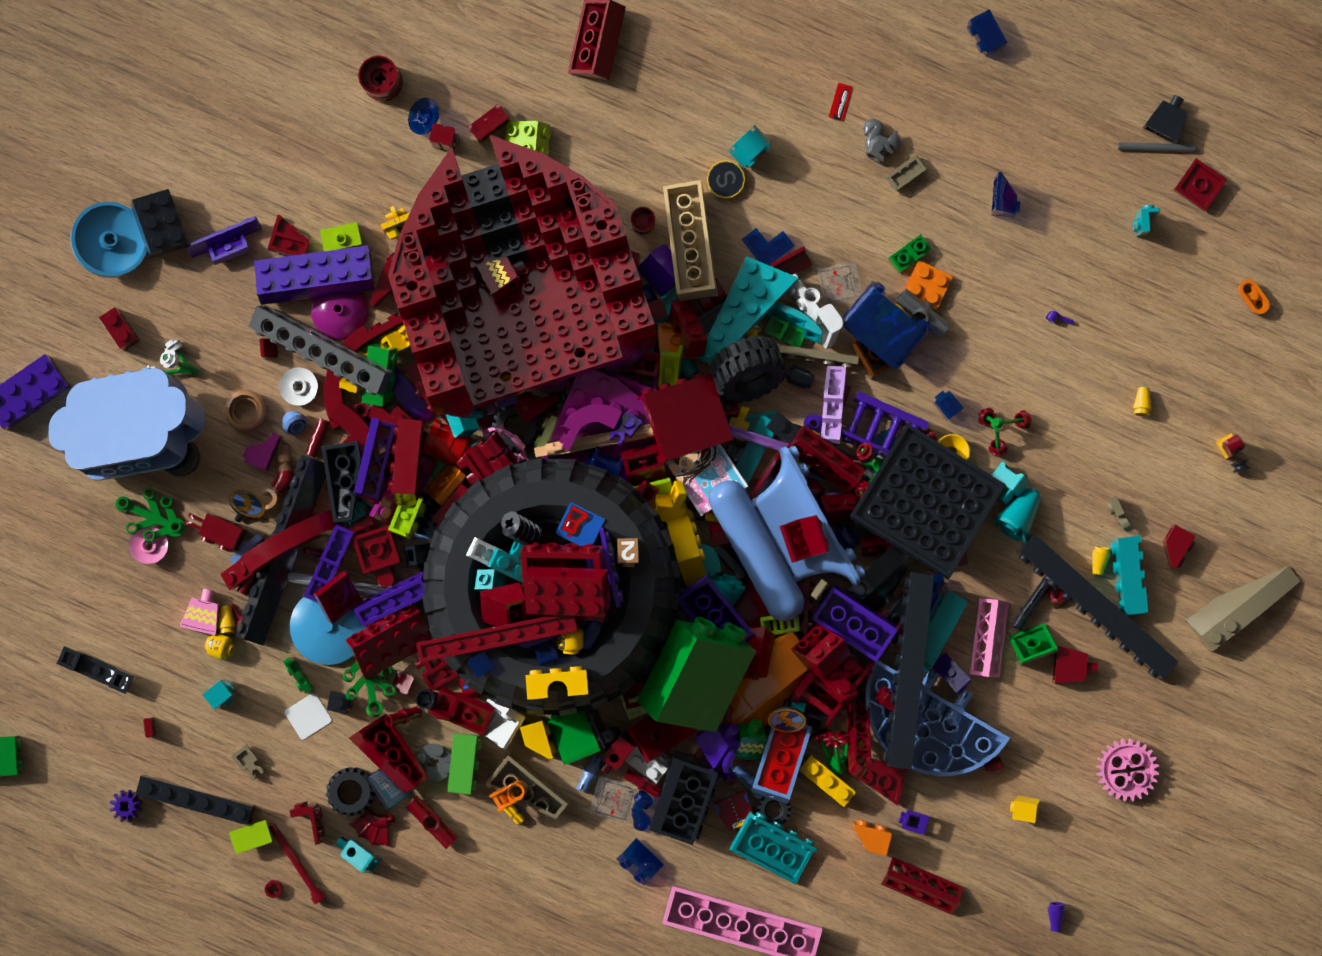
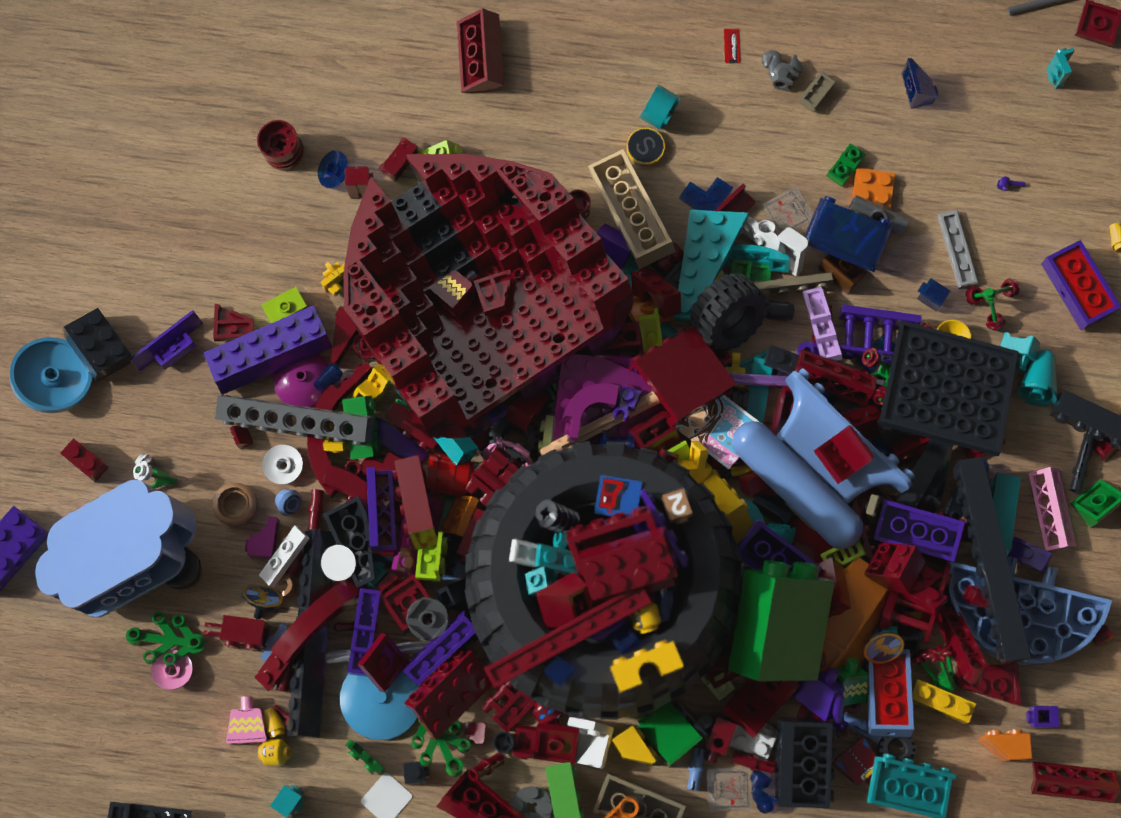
camera: 20 degrees left, 10 degrees down
(276, 473) = (284, 556): none -> white plate
(323, 495) = (338, 562): none -> white sticker
(362, 317) = (329, 376): none -> clear blue cone
(387, 580) = (425, 606): none -> dark grey plate
(535, 288) = (493, 291): none -> dark red wing
(987, 367) = (957, 249): none -> light grey tile
(1088, 437) = (1080, 285): none -> brick

